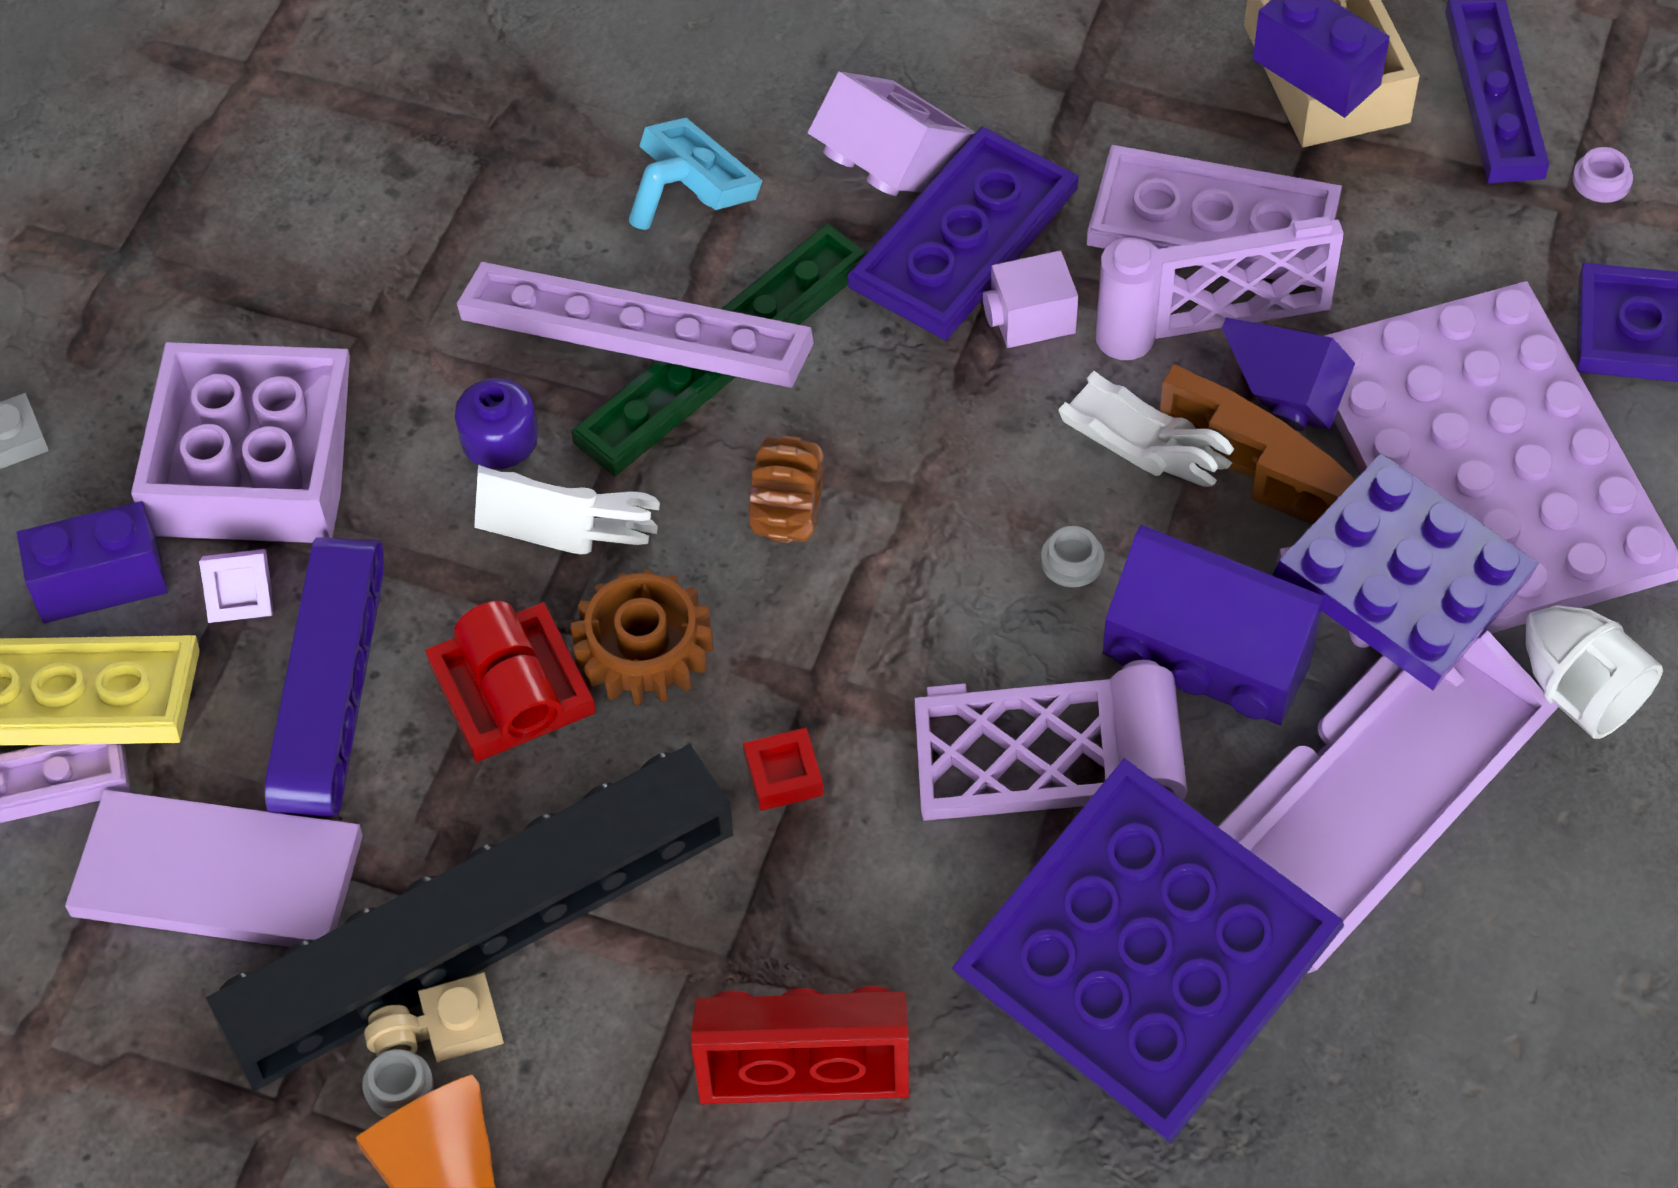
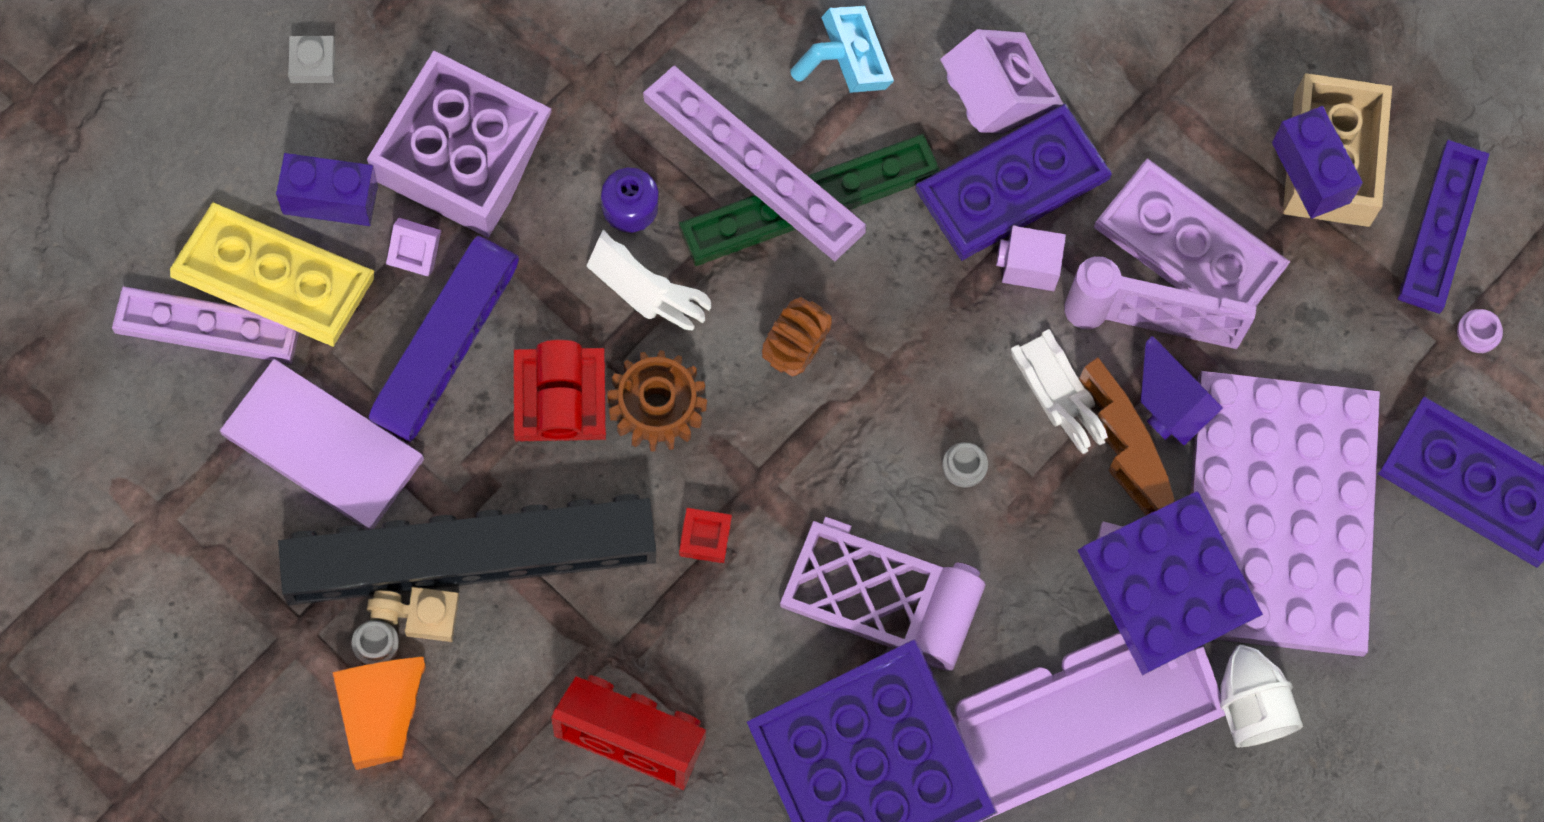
camera: 15 degrees right, 15 degrees up
(1213, 625) = (1023, 564): dark purple slope -> none

